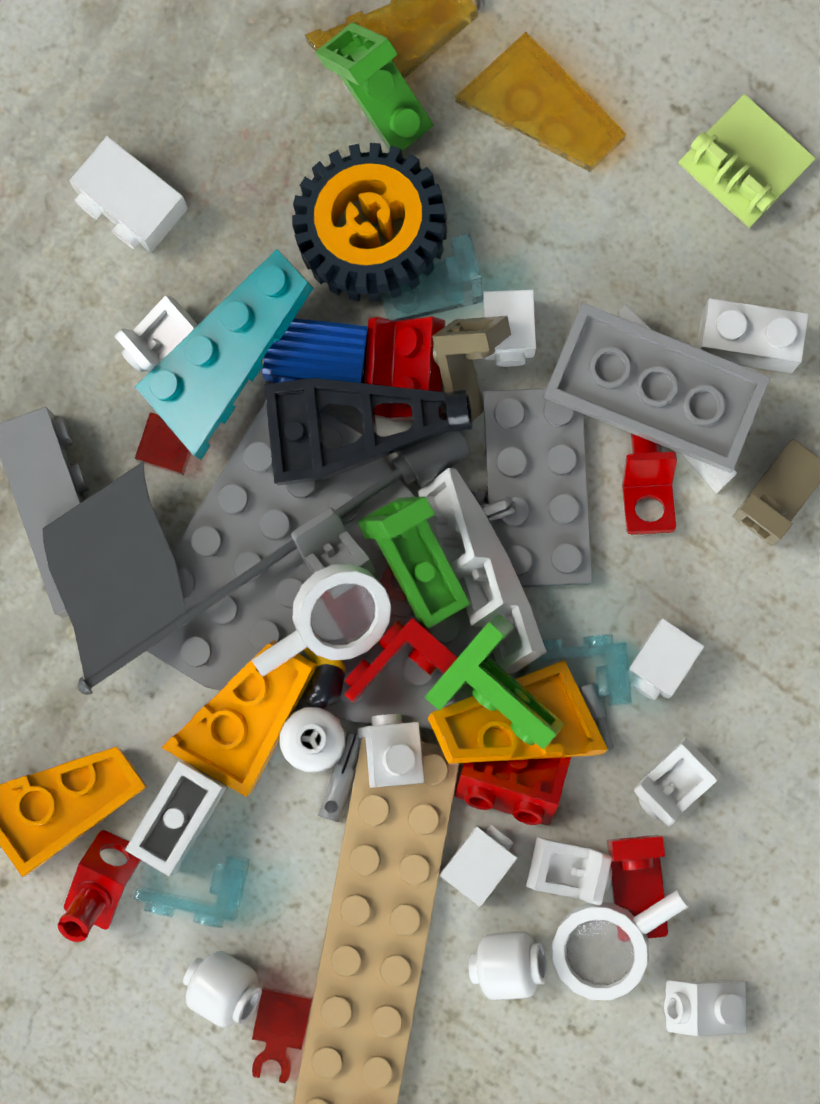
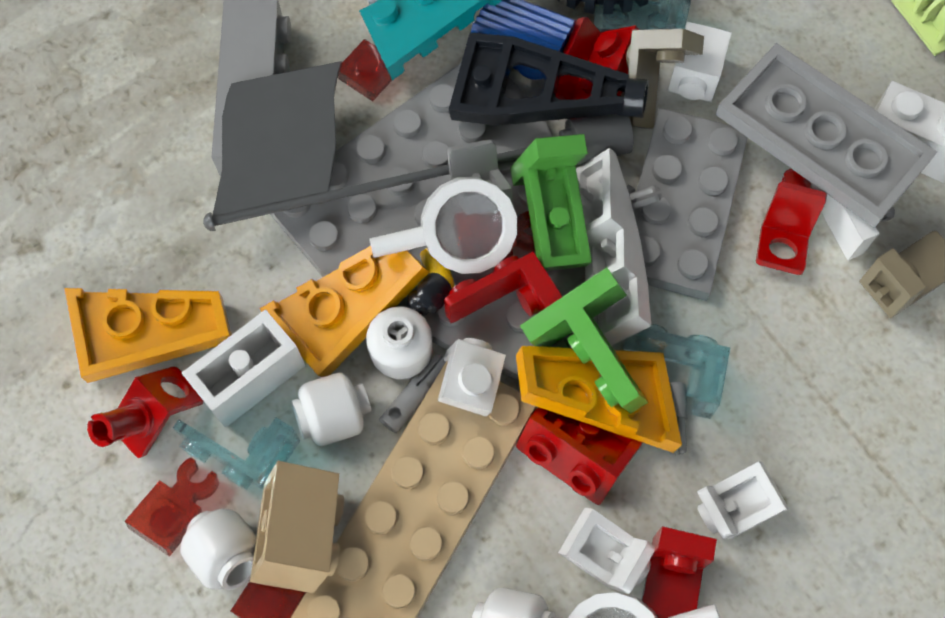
camera: 15 degrees right, 15 degrees down
(160, 972) = (167, 511): none -> clear red plate
(271, 826) = (331, 409): none -> white head
(286, 949) = (297, 528): none -> tan brick
(479, 863) = (518, 514): white brick -> none
(663, 661) = (760, 382): white brick -> none

